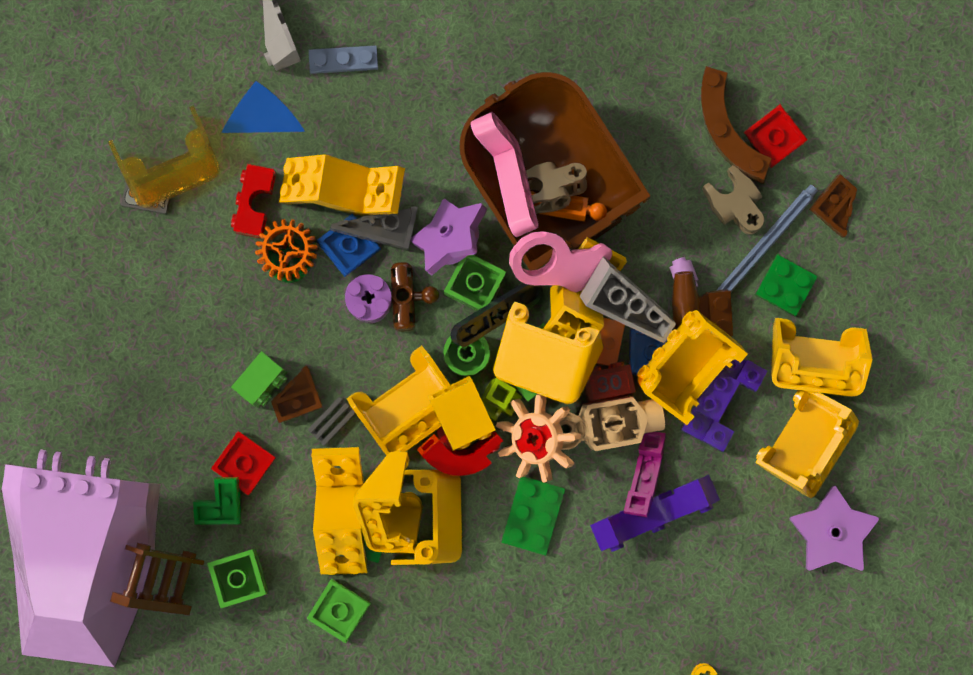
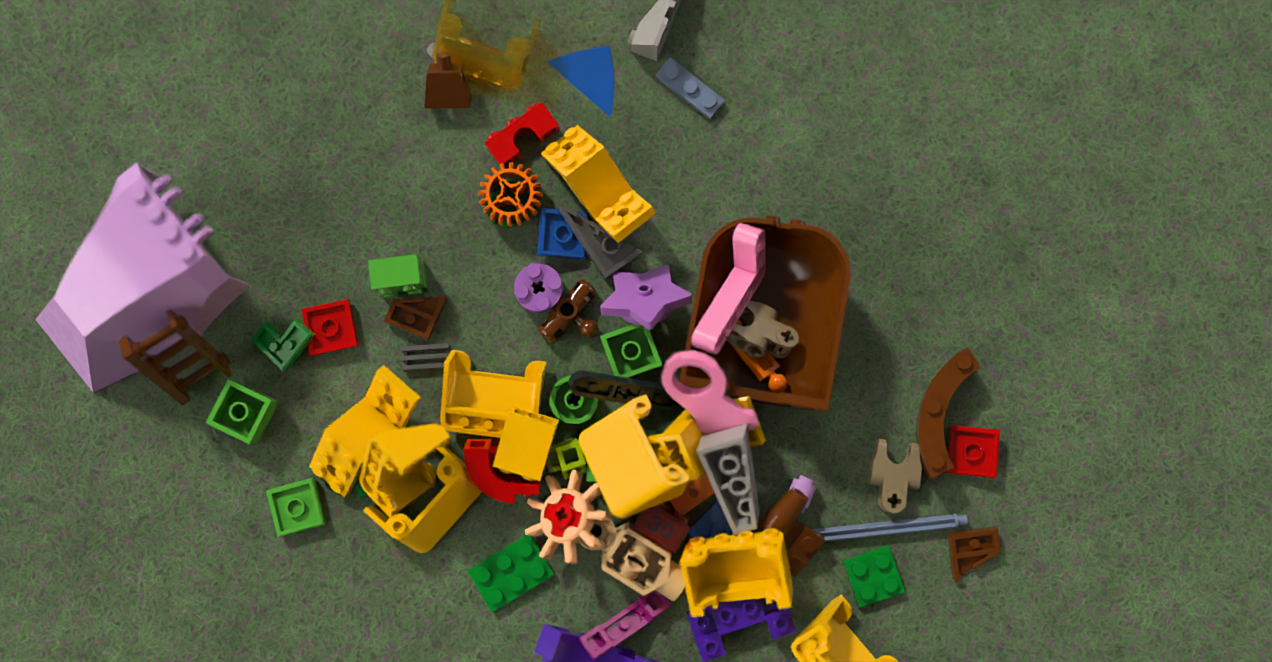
camera: 45 degrees right, 0 degrees up
(167, 213) = (447, 84): none -> reddish brown torso

